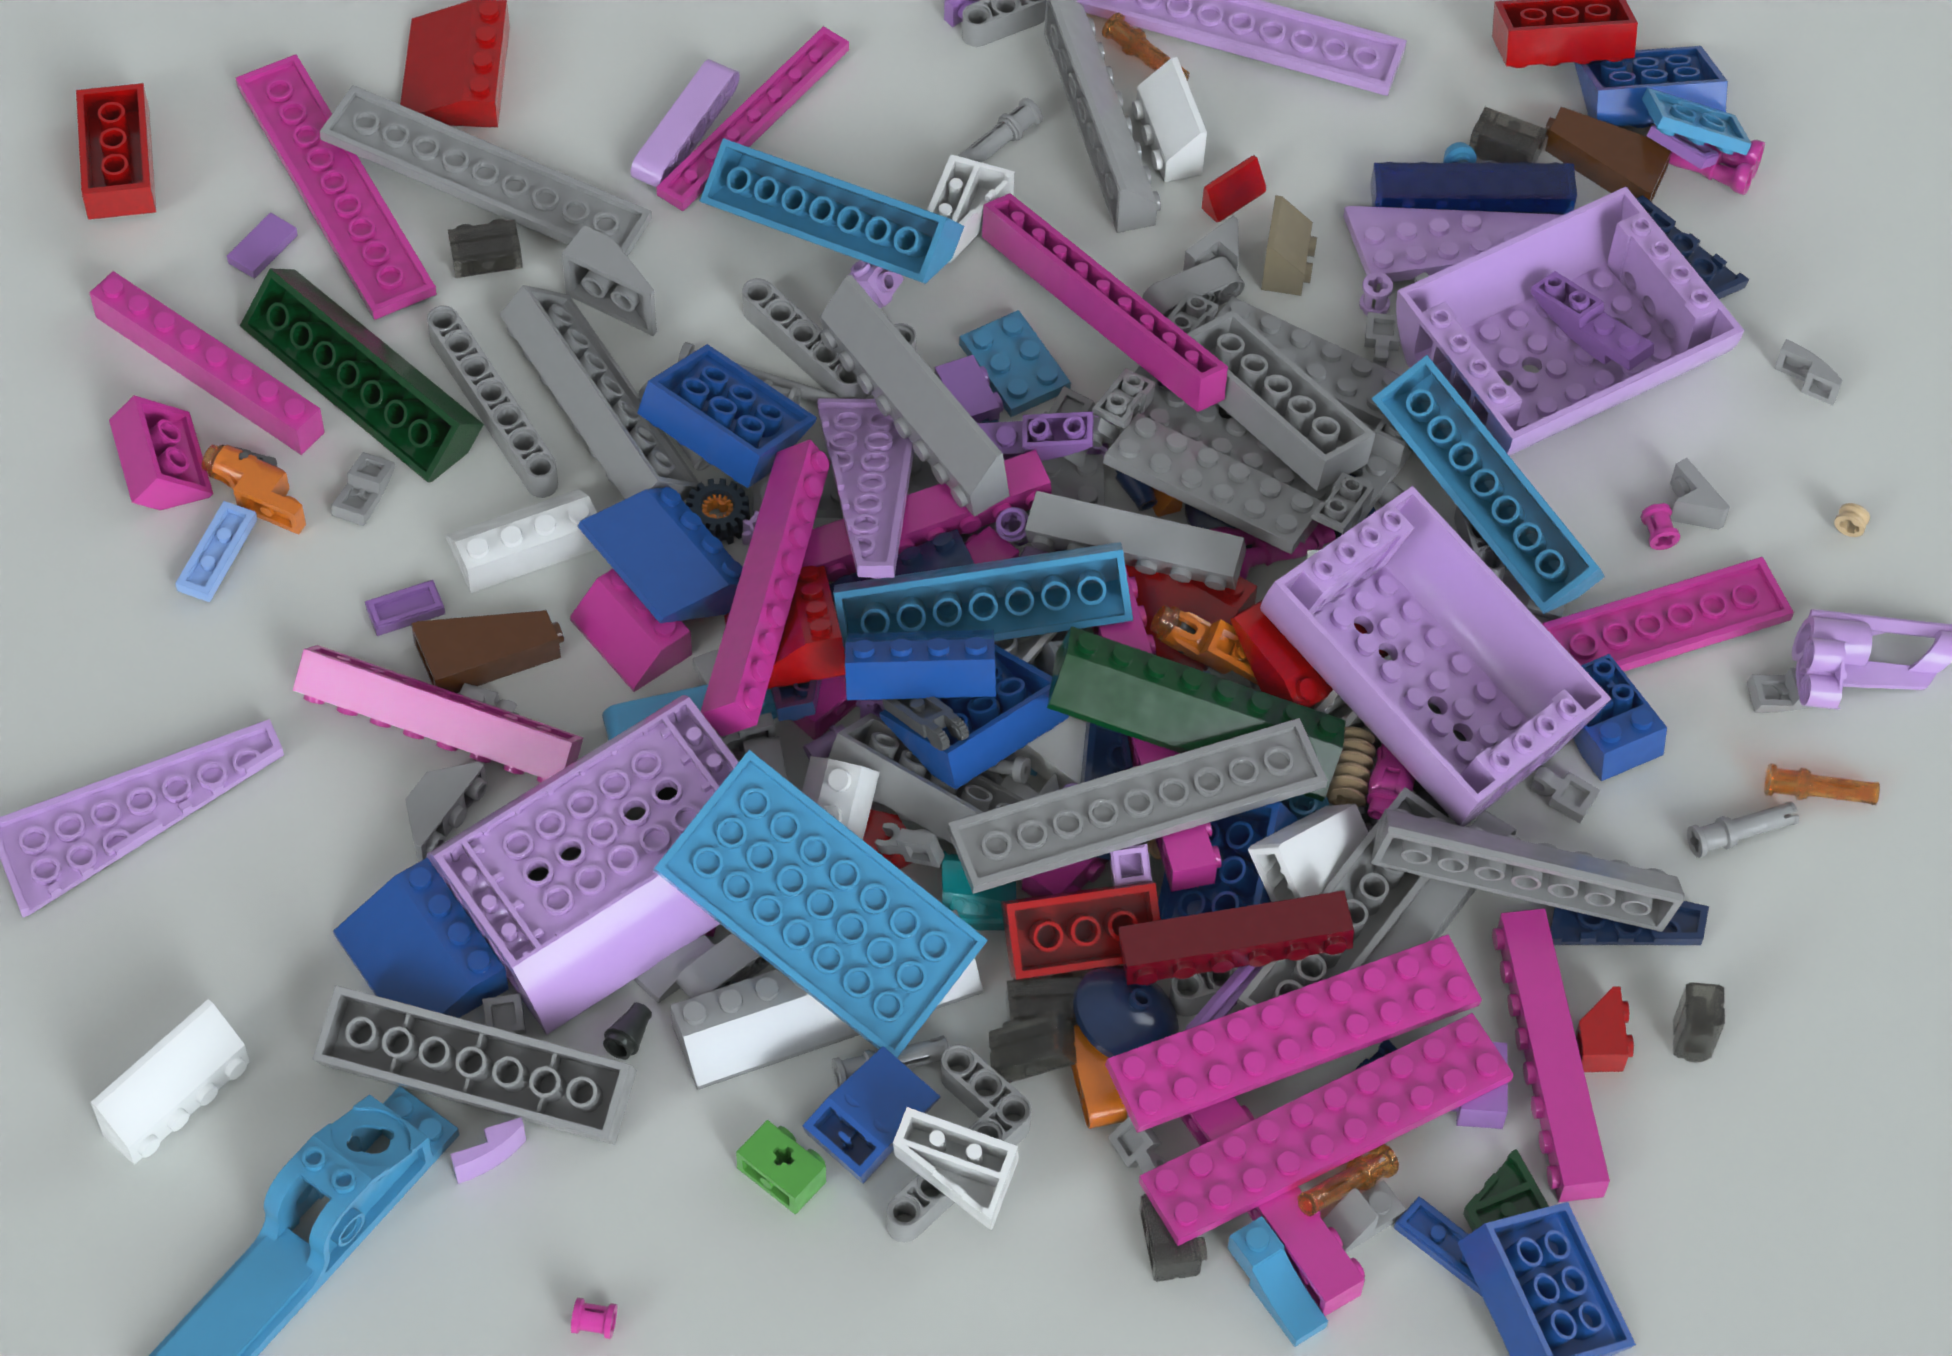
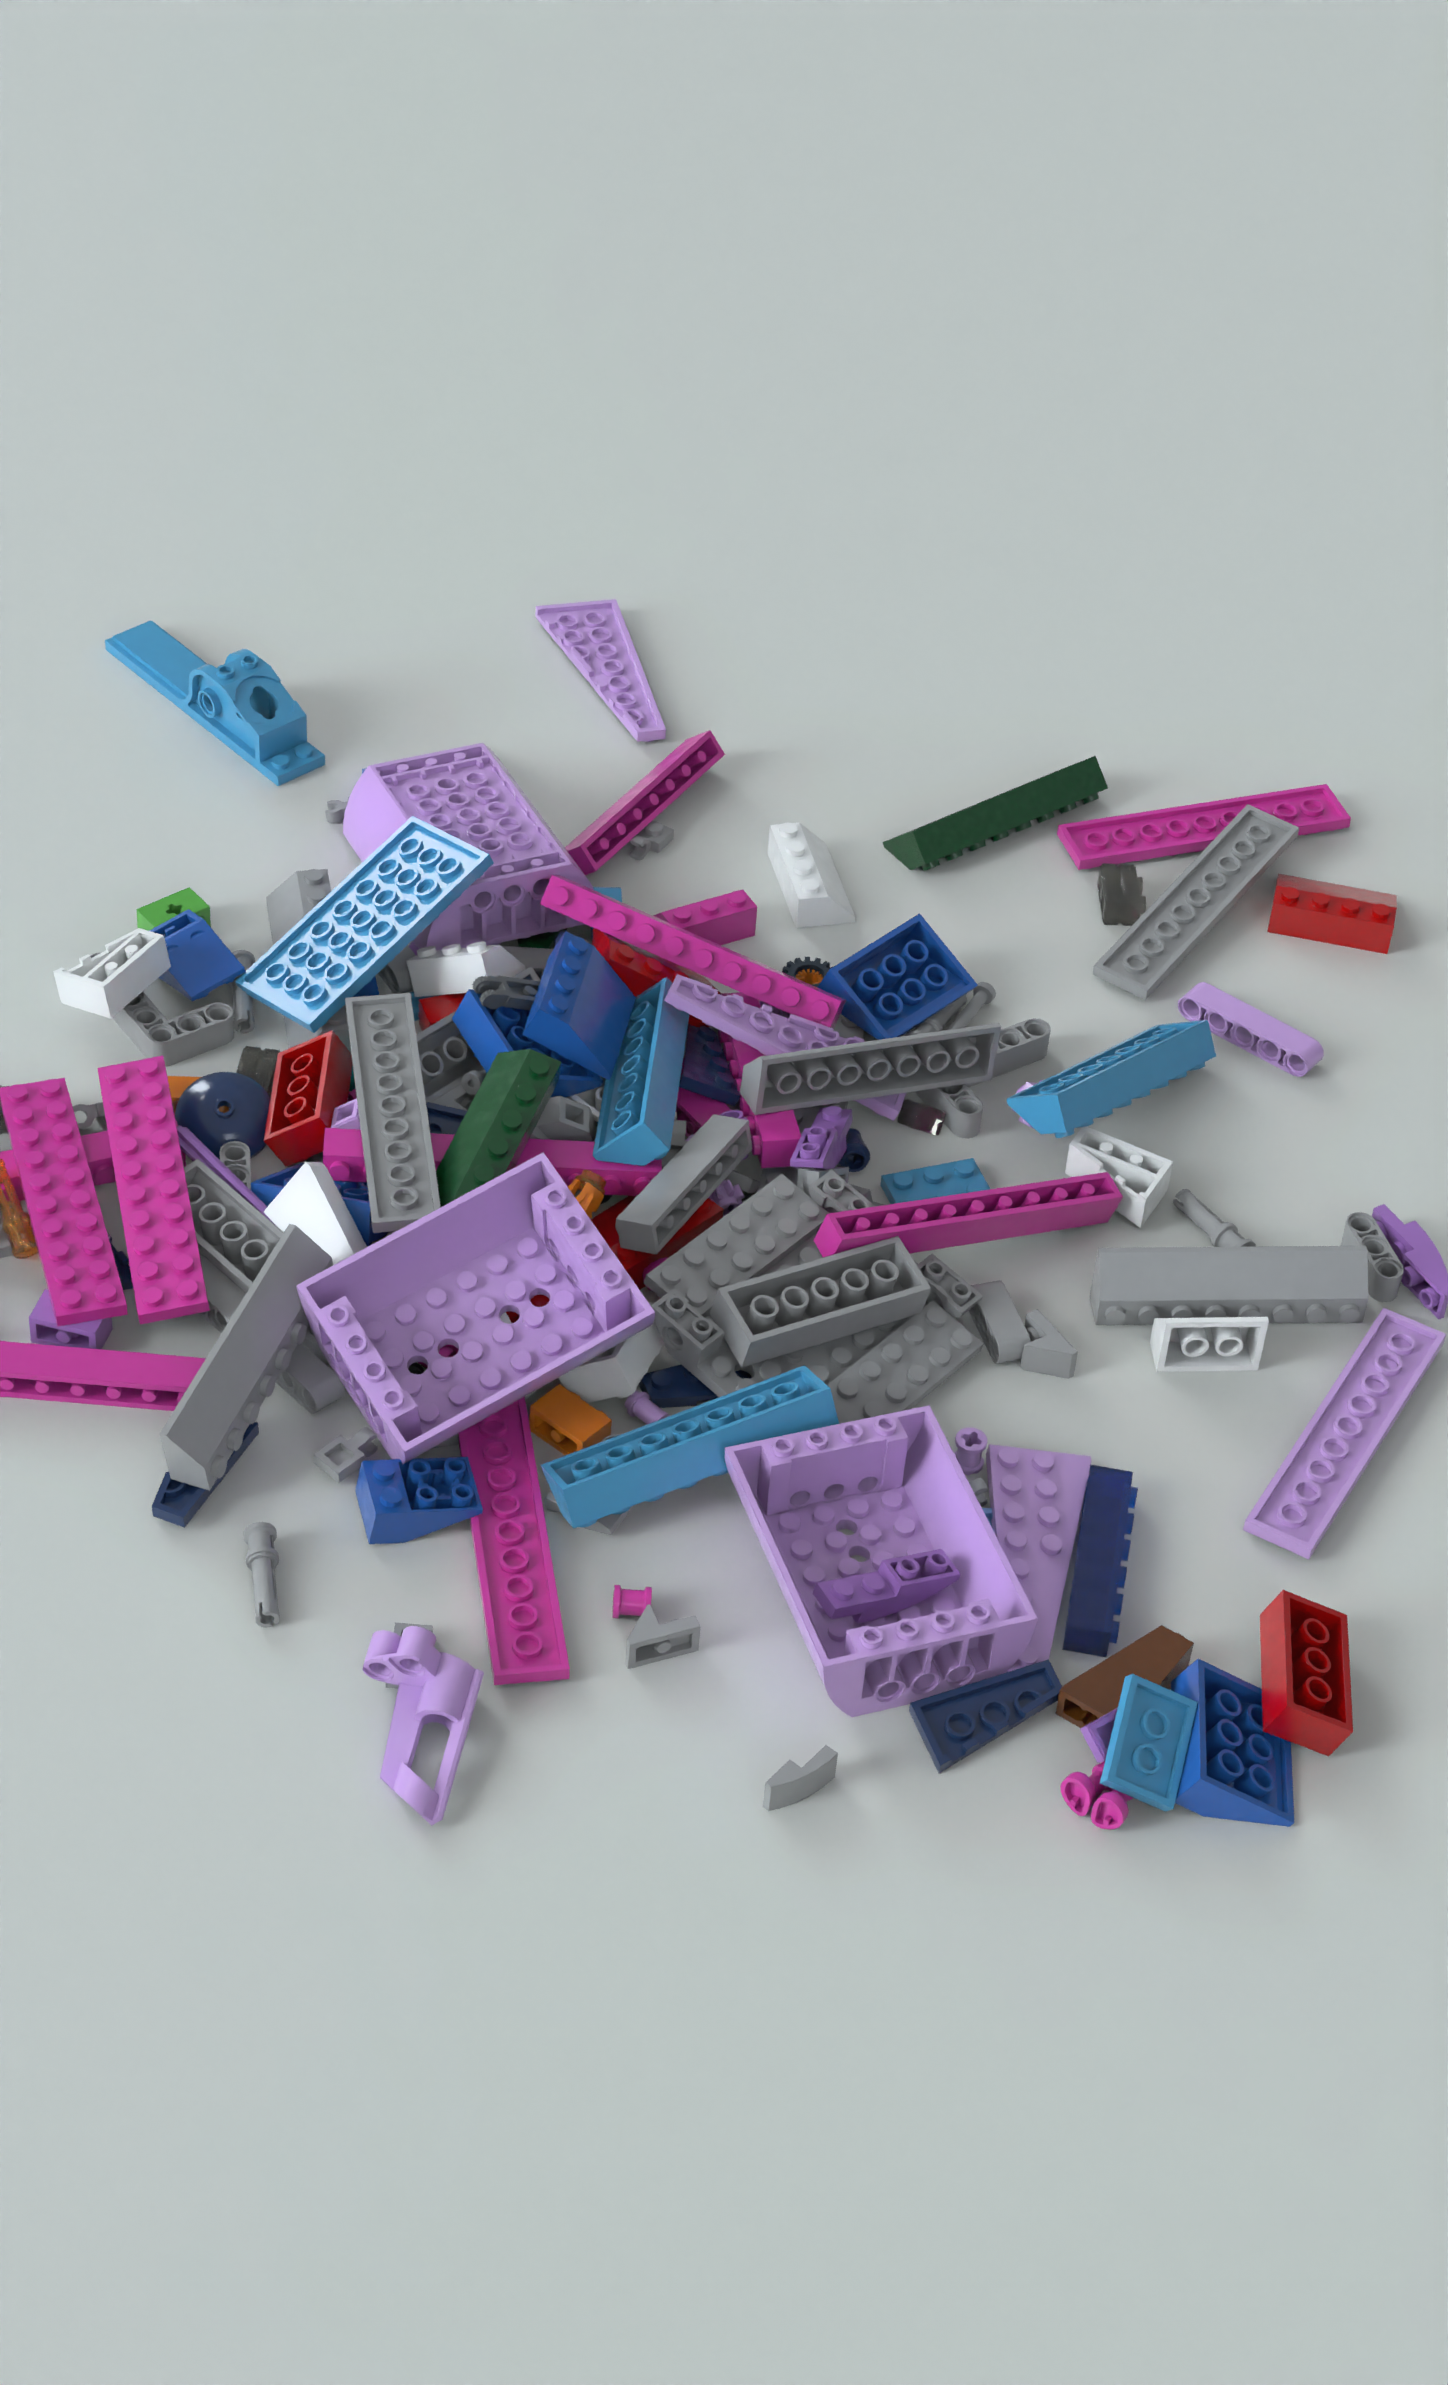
camera: 100 degrees right, 15 degrees down
(115, 151) = (1247, 712): red brick -> none
(159, 454) = (934, 707): dark pink slope -> none
(170, 1083) = (363, 647): white slope -> none
(207, 362) = (1019, 738): dark pink brick -> none
(216, 551) = (835, 727): light blue plate -> none
(256, 484) = (891, 750): orange plate -> none
(262, 245) = (1146, 786): medium lavender tile -> none
(364, 488) = (888, 810): light grey slope -> none
(404, 607) = (757, 813): medium lavender tile -> none
(442, 803) = (557, 798): light grey slope -> none
(475, 1064) = (315, 777): light grey brick -> none
(485, 647) = (701, 838): reddish brown slope -> none
(500, 1144) = (251, 786): lavender slope -> none
(503, 414) = (952, 877): light grey beam -> none
(594, 393) = (969, 927): light grey slope -> none
(594, 1318) = (92, 815): dark pink bush -> none
(607, 280) = (1062, 945): light grey slope -> none
(627, 1032) = (321, 858): pearl dark grey cone -> none
(665, 555) = (759, 919): blue slope -> none
(755, 114) = (1268, 1081): dark pink plate -> none
(915, 846) = (425, 1004): light grey plate -> none
(971, 388) = (900, 1146): medium lavender brick -> none
(1032, 1046) = (213, 1053): clear smoke brick -> none
(1135, 43) = (1327, 1345): clear orange pin -> none
(1233, 189) = (1124, 1378): red slope -> none
(1236, 938) = (247, 1157): dark red brick -> none
(1288, 250) = (1033, 1383): dark tan slope -> none
(1460, 153) = (1143, 1559): dark azure plate -> none
(1506, 138) = (1162, 1600): clear smoke brick -> none
(1603, 1034) = (84, 1414): red slope -> none
(1698, 1021) = (59, 1465): clear smoke brick -> none
(1804, 784) = (294, 1634): clear orange pin -> none
(1852, 520) = (598, 1763): tan bush -> none

